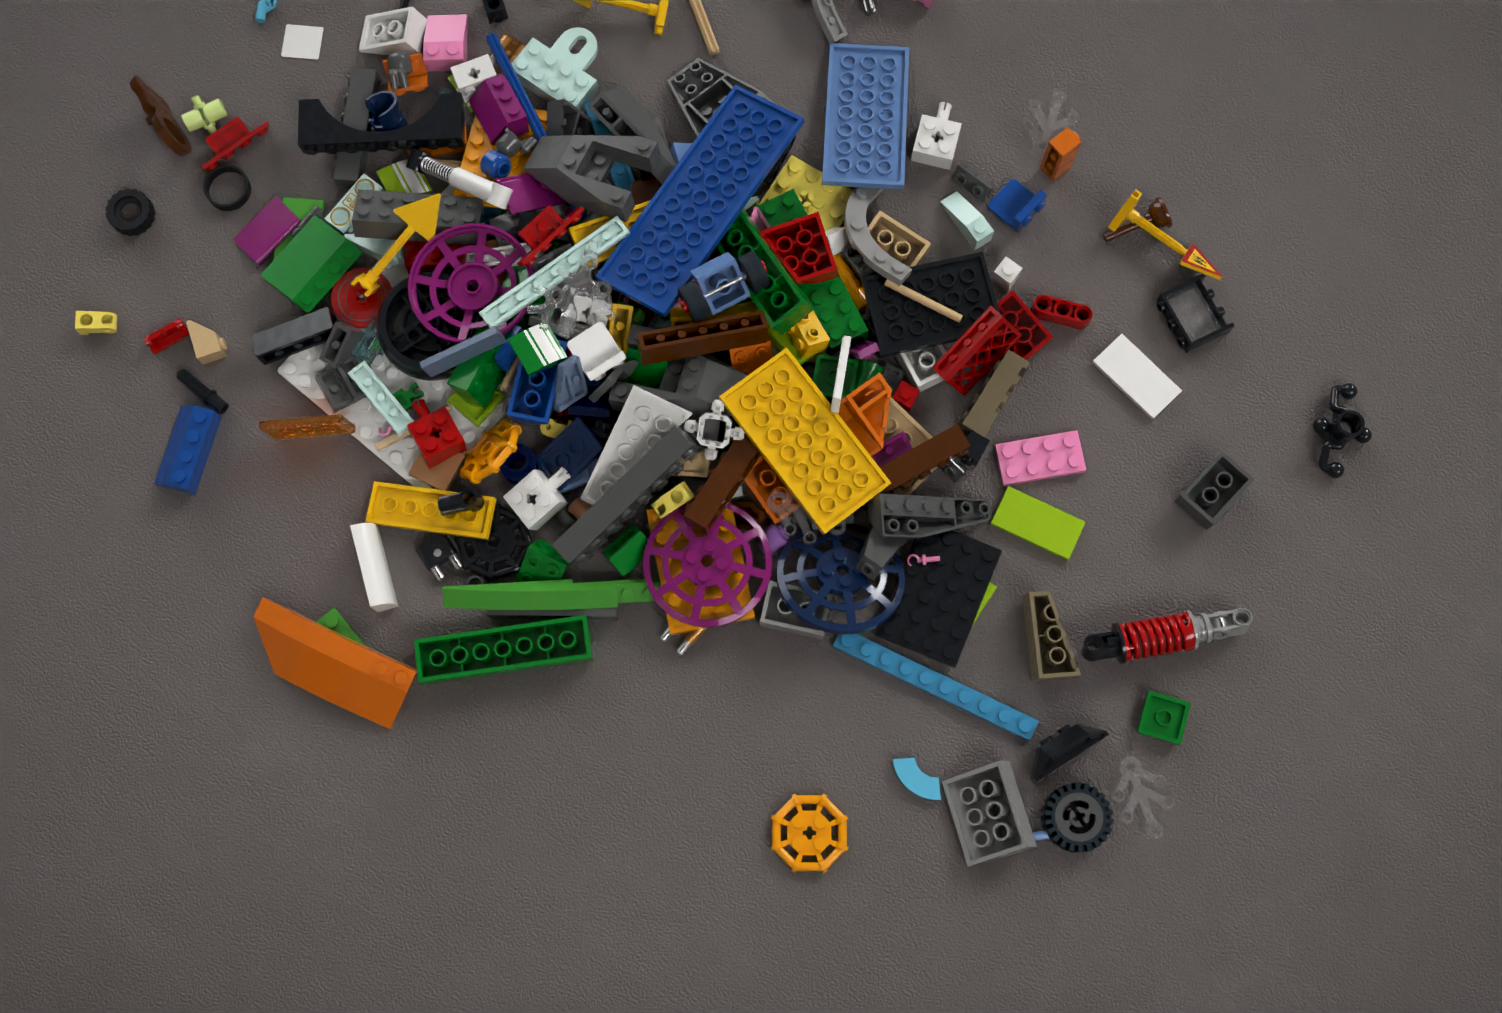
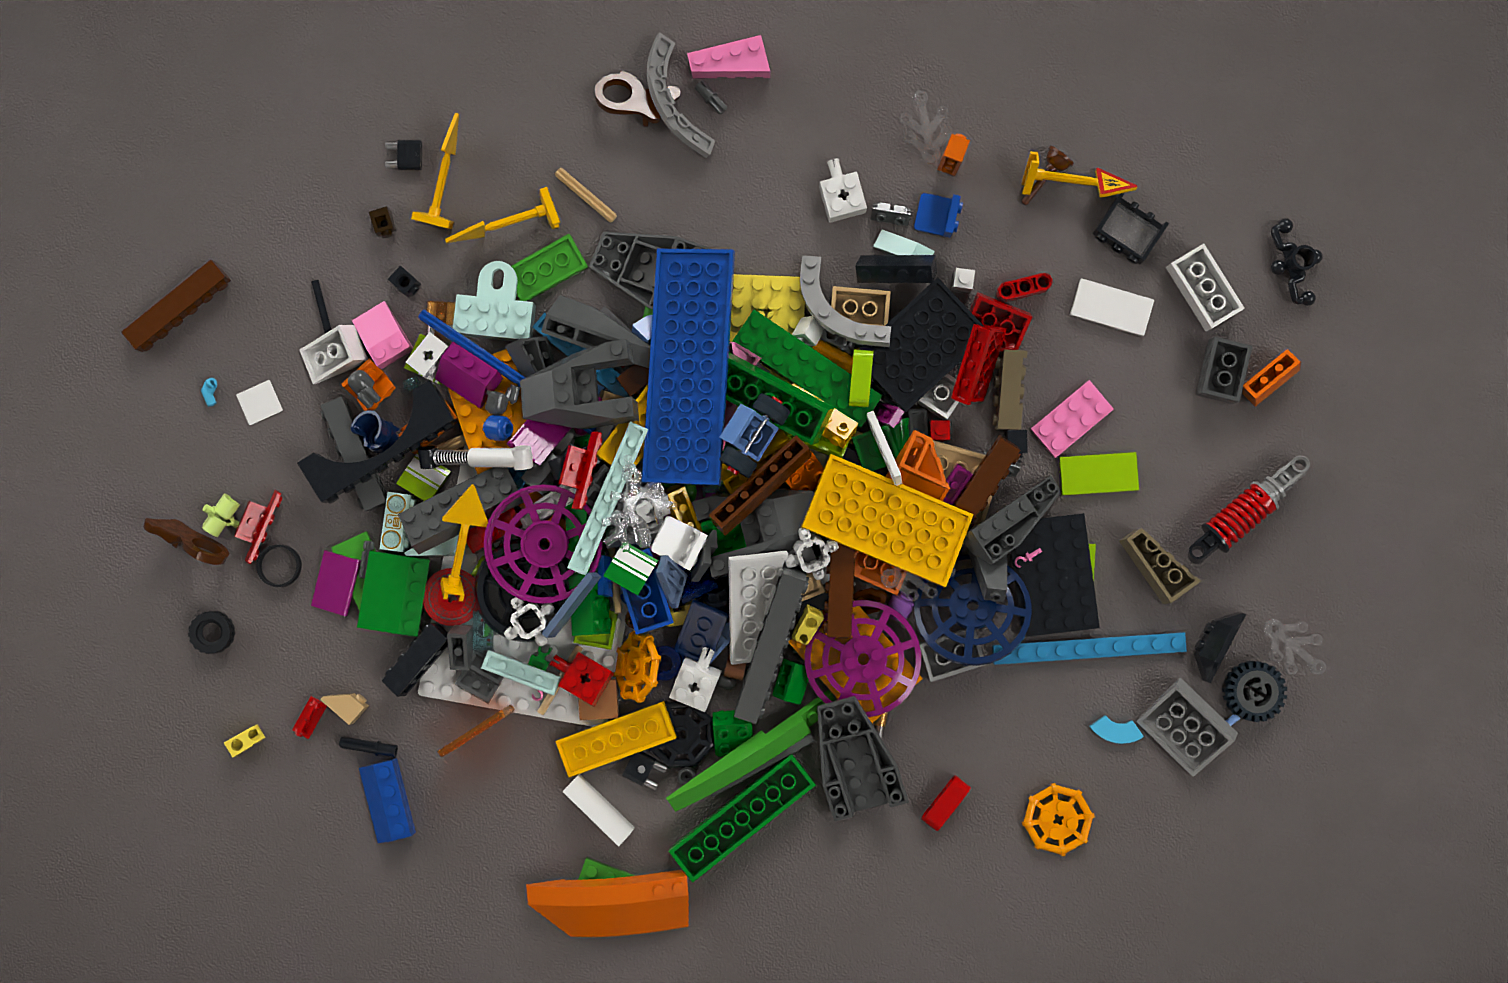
camera: 30 degrees left, 10 degrees up
(415, 332) = (518, 604): none -> white piece
(459, 502) = (638, 723): black piece -> none
(630, 63) = (548, 268): none -> bright green tile
(642, 656) = (855, 761): none -> dark grey wedge
(708, 752) = (946, 803): none -> red beam
(803, 249) = (795, 361): red wedge -> none
(856, 299) = (861, 378): none -> lime beam
(866, 116) = (773, 207): medium blue plate -> none
(924, 301) = (916, 347): tan piece -> none
(948, 226) = (896, 269): none -> black brick
(1163, 717) = (1278, 575): green plate -> none
(1237, 403) = (1204, 287): none -> white brick
(1258, 522) = (1271, 377): none -> orange brick

